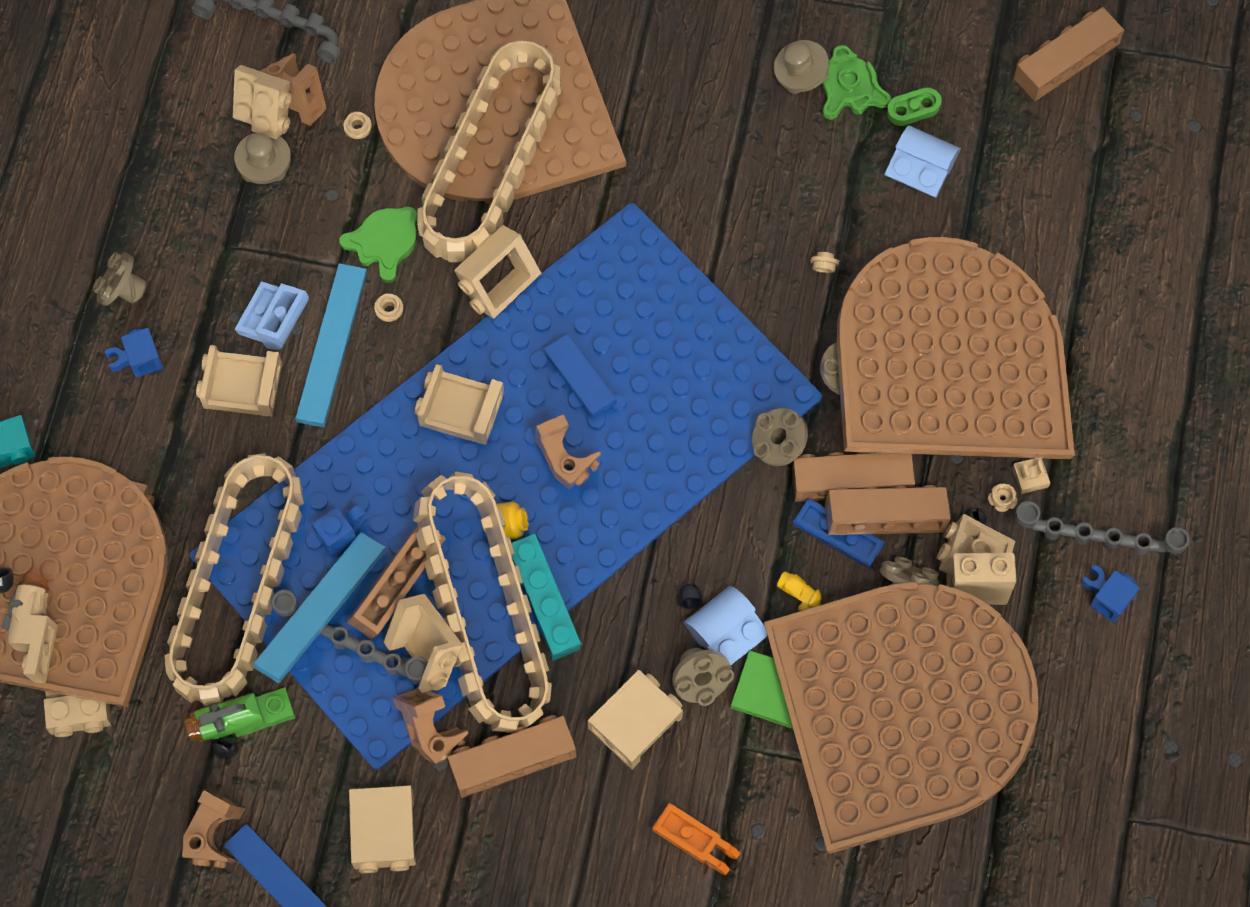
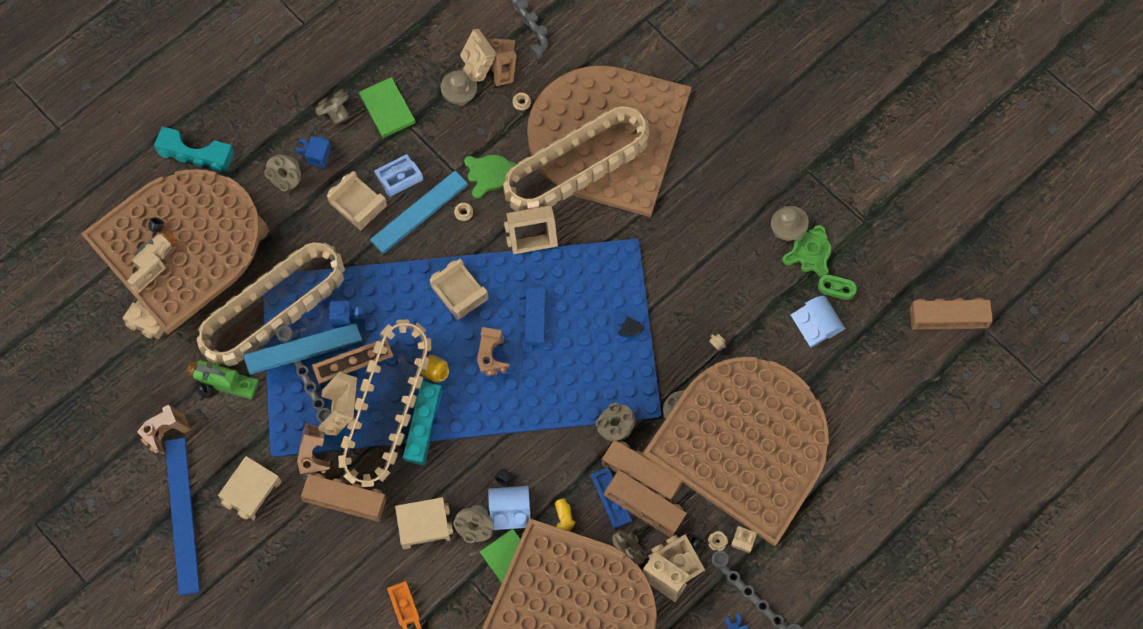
camera: 35 degrees right, 0 degrees up
(117, 405) = (283, 171): none -> dark tan plate
(187, 241) = (387, 107): none -> bright green tile
(708, 313) = (630, 328): none -> black tile

